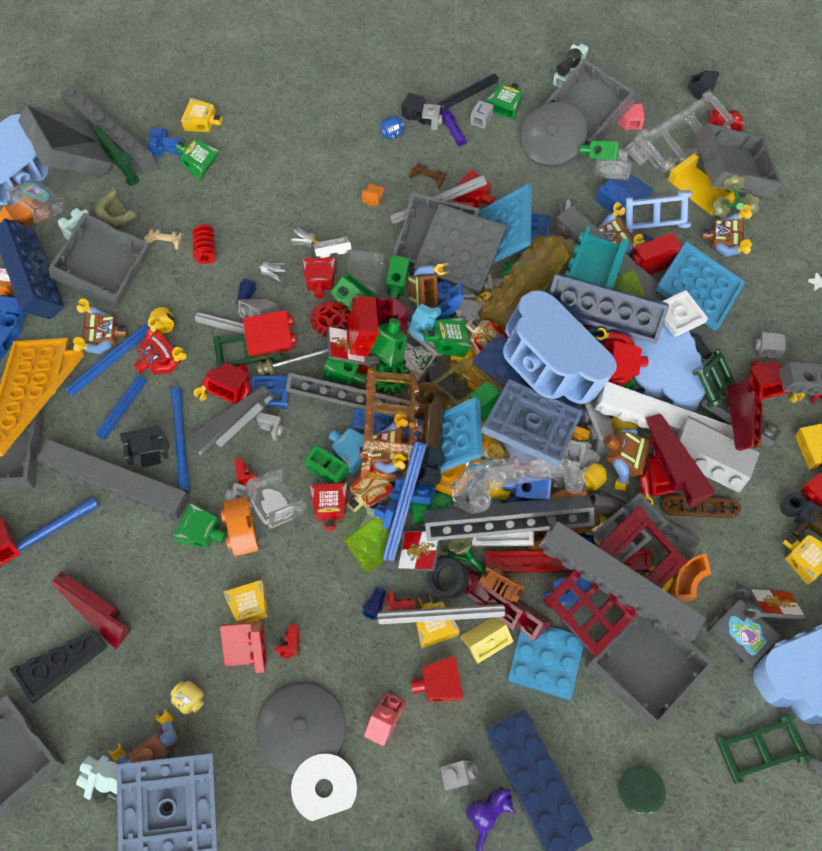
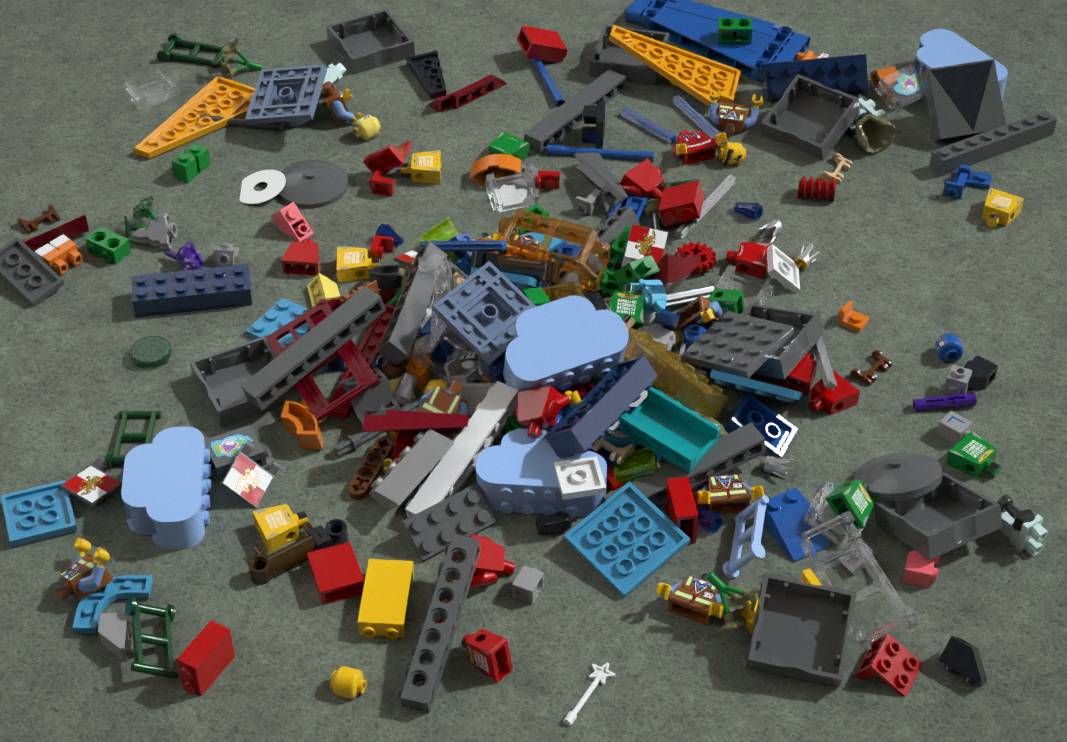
camera: 105 degrees right, 20 degrees down
(121, 160) = (928, 133): dark green piece -> none
(196, 157) = (934, 195): green torso -> none
(256, 307) = (717, 209): light grey slope -> none
(329, 503) = (489, 220): red torso -> none
(354, 287) = (712, 267): green brick -> none
(362, 326) = (653, 242): red brick -> none
(441, 614) = (353, 259): axle -> none
(468, 91) = (994, 423): black axle -> none
(714, 396) = (469, 482): dark green piece -> none
(746, 415) = (437, 500): dark red wedge -> none

